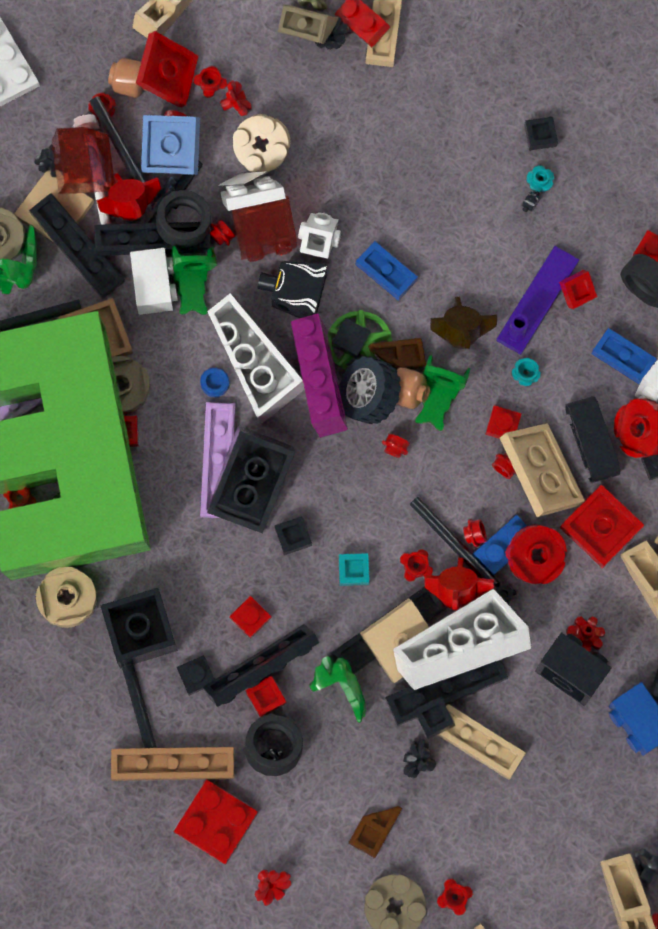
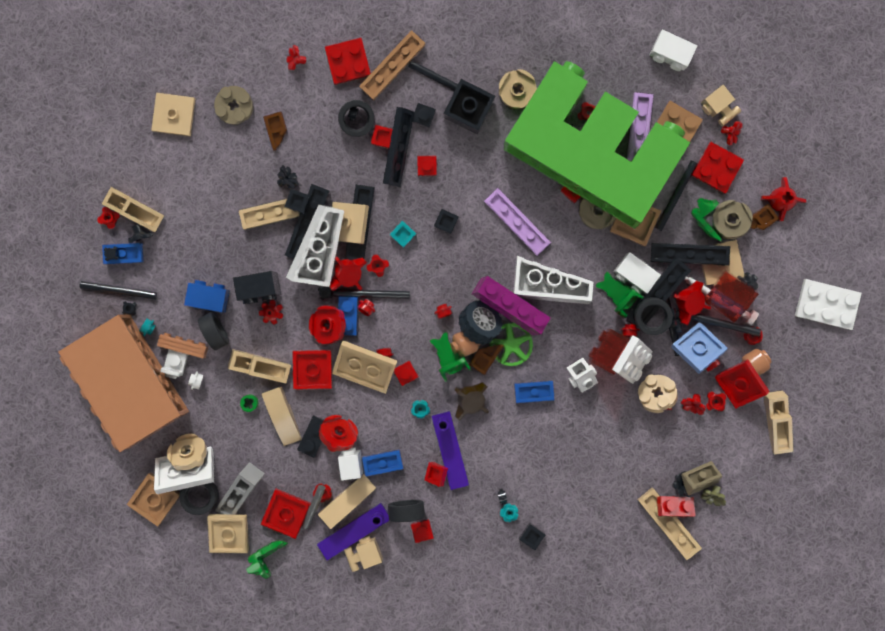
camera: 140 degrees right, 15 degrees up
(214, 382) = (557, 256): blue tile -> none
(242, 178) = (647, 366): white sticker -> none
(250, 479) = (491, 227): black slope -> none
(296, 287) = (566, 339): black torso -> none
(330, 673) = (355, 178): green hair -> none
(351, 338) = (515, 340): black tile -> none
(463, 894) = (206, 133): red plate -> none
(593, 439) = (357, 407): black beam -> none

